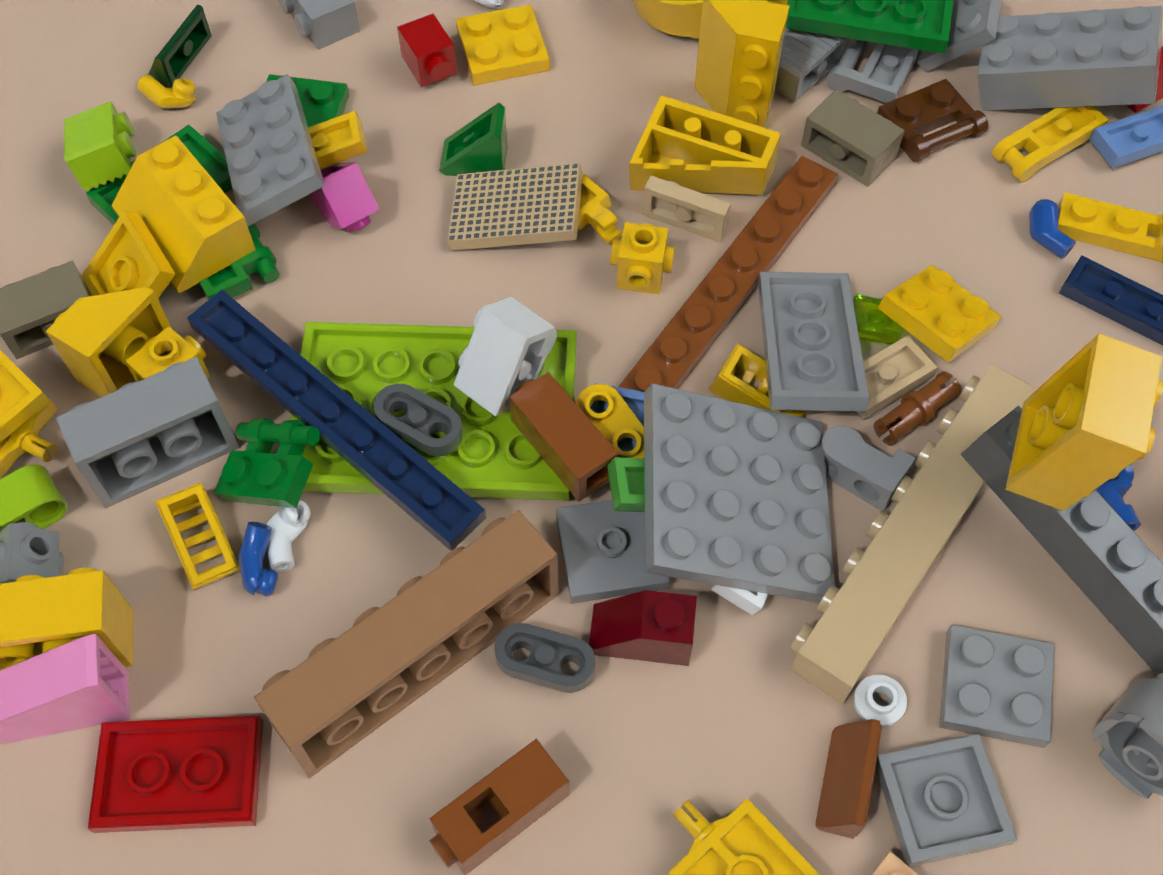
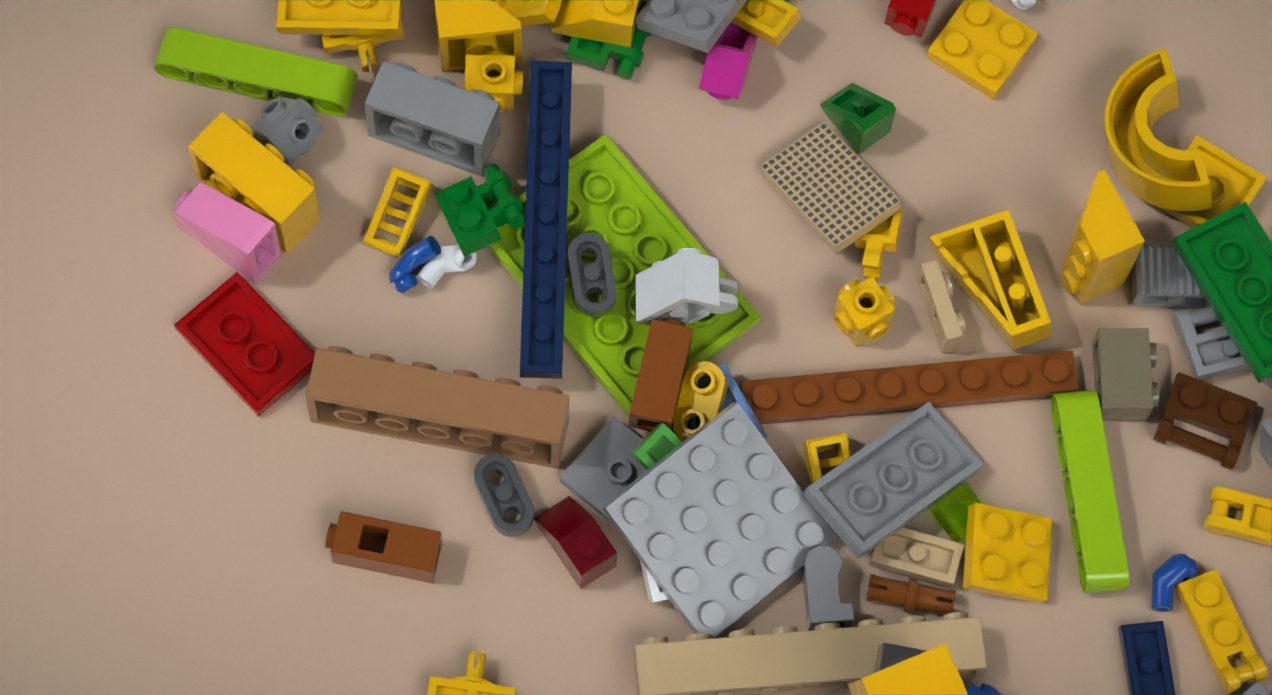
camera: 45 degrees right, 10 degrees up
(933, 224) = (1089, 491): none -> lime beam

